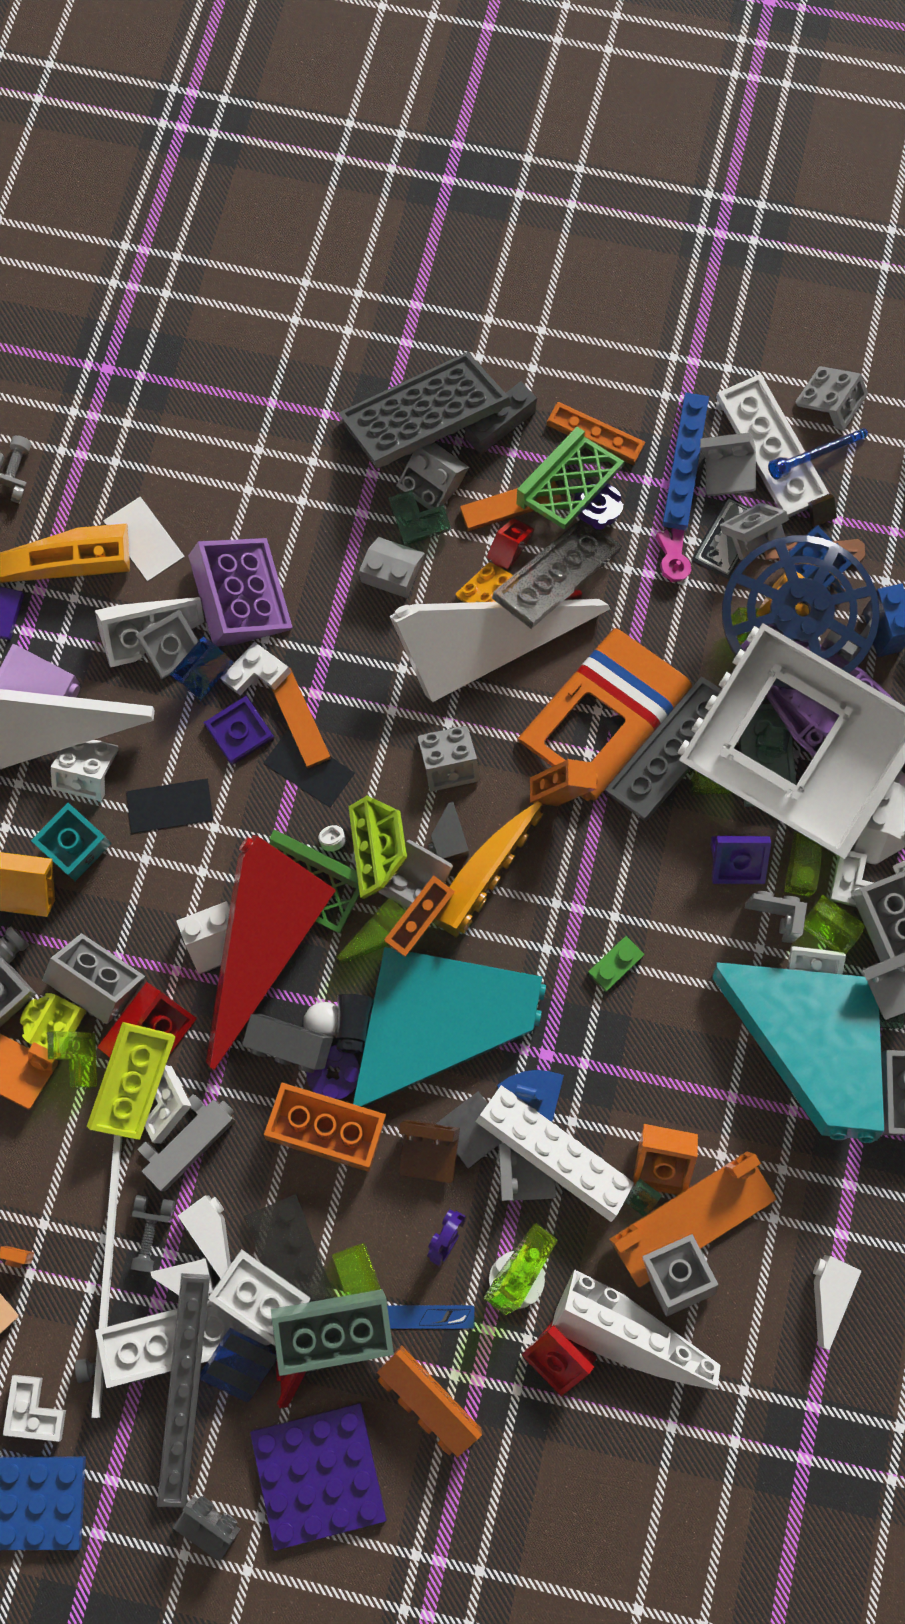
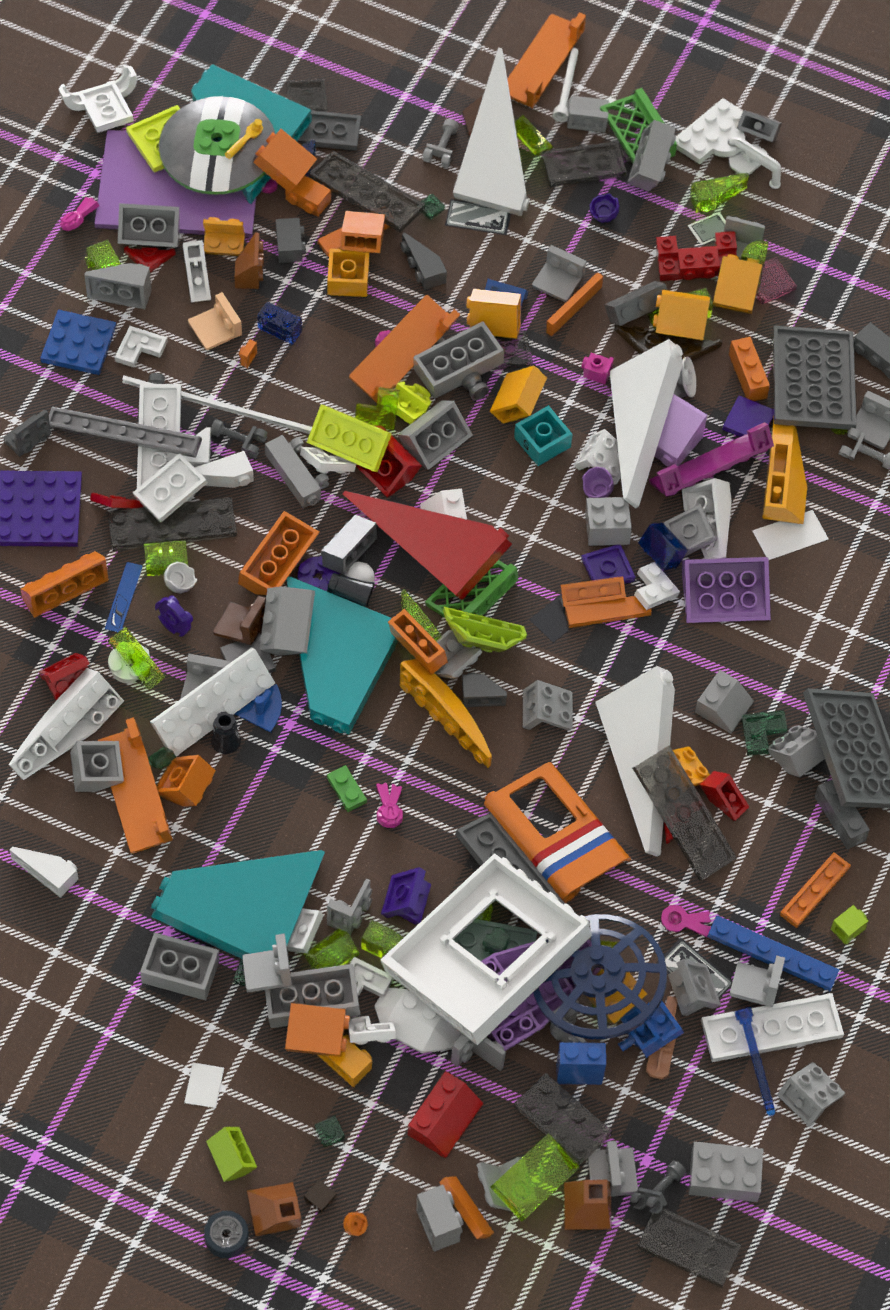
camera: 100 degrees right, 15 degrees down
(69, 634) = (675, 477): none -> magenta bracket
(127, 762) = (597, 483): none -> medium lavender hair
(169, 805) = (558, 511): black sticker -> none
(179, 739) = (608, 521): none -> light grey brick
(238, 1365) = (128, 470): tile -> none
(281, 737) = (593, 591): none -> orange plate
(332, 838) = (501, 611): white tile -> none
(332, 1332) = (131, 522): sand green brick -> none
(383, 1247) = (179, 577): none -> white hair
(423, 1087) = (287, 621): none -> light grey slope
(498, 508) = (762, 807): orange tile -> none
(551, 471) = (786, 841): bright green fence -> none
(563, 782) = (498, 770): orange brick -> none
(582, 1134) = (225, 734): none -> black plant
(606, 513) = (734, 875): plate -> none
(630, 389) = (849, 924): none -> lime brick
(638, 904) = (389, 814): none -> dark pink piece
(822, 510) = (700, 1049): dark brown tile -> none

